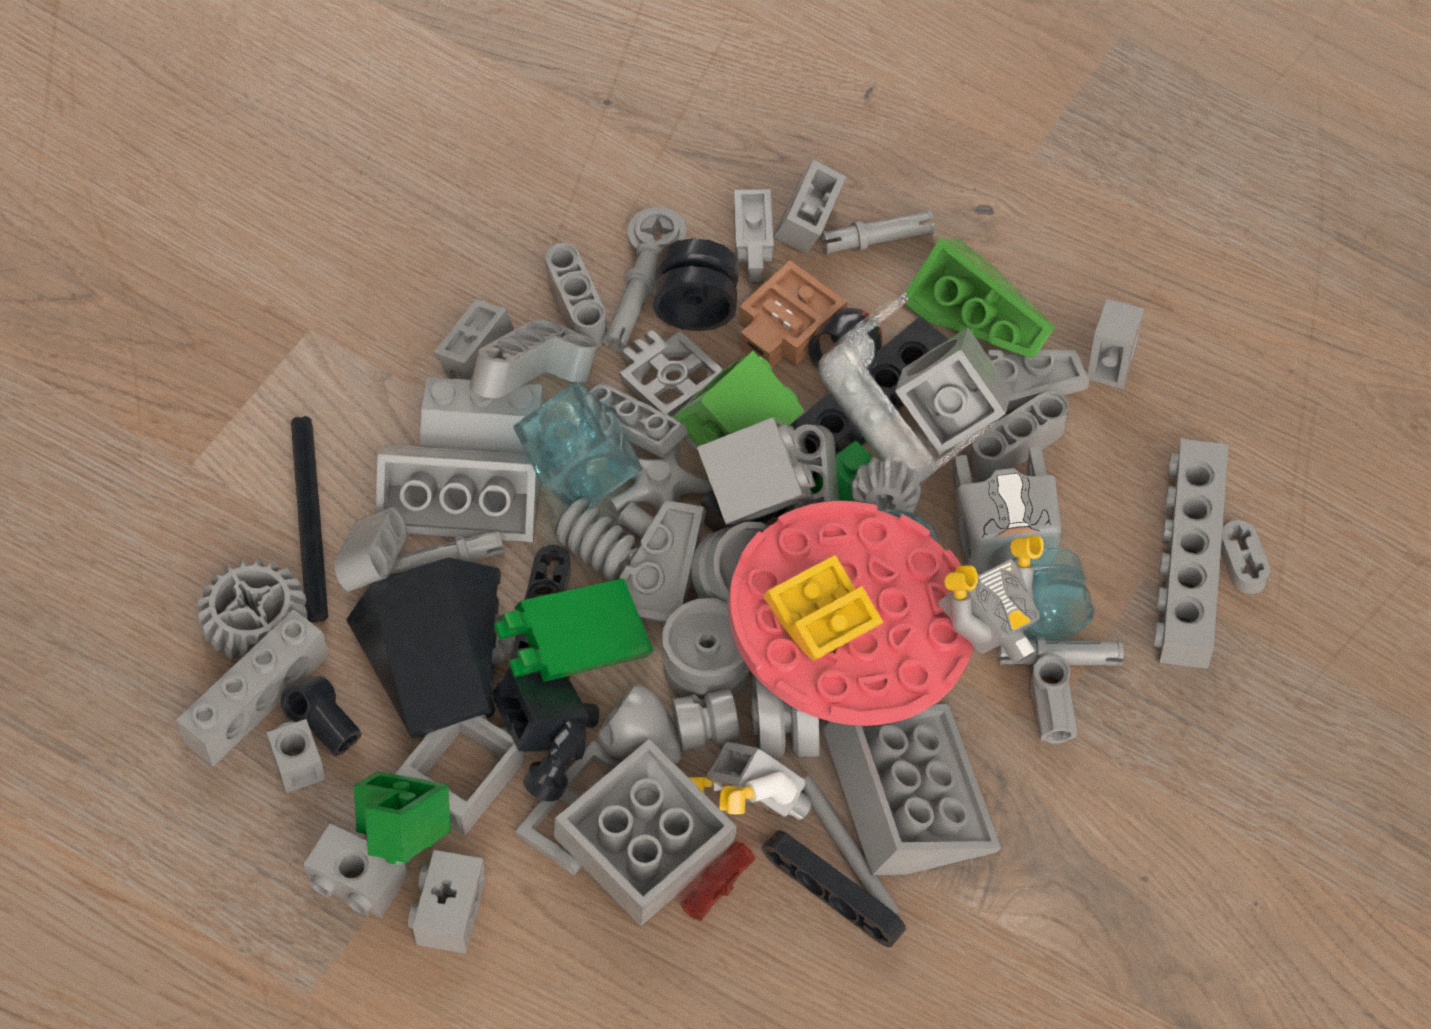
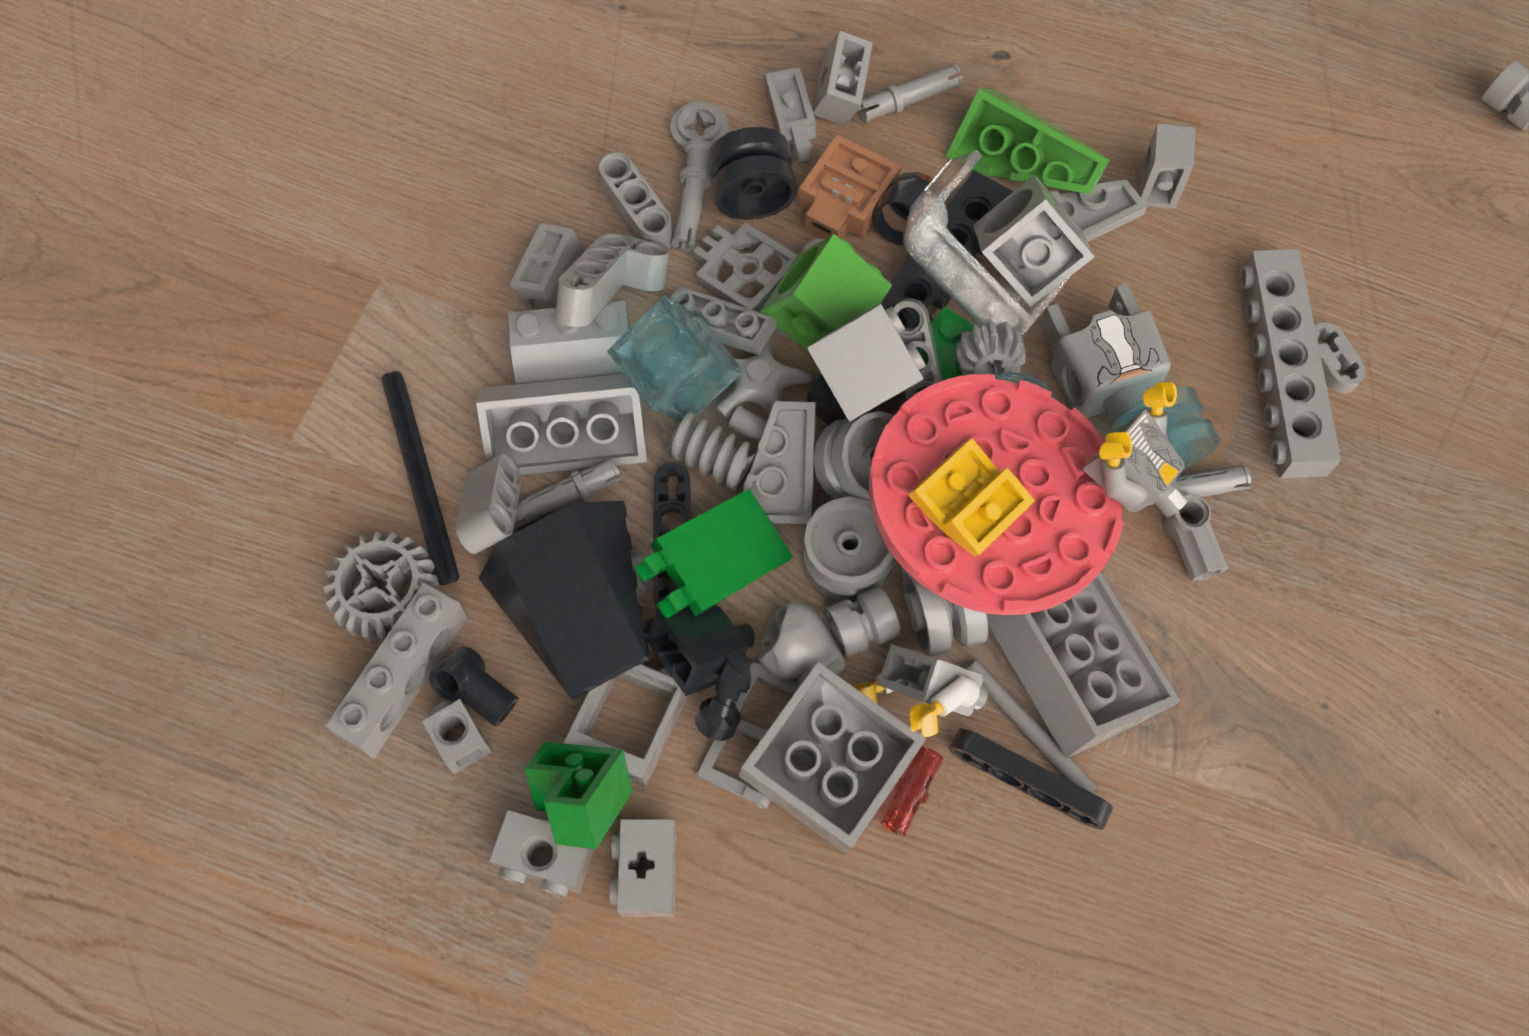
camera: 10 degrees left, 10 degrees up
(1028, 421) = (1107, 263): light grey beam -> none

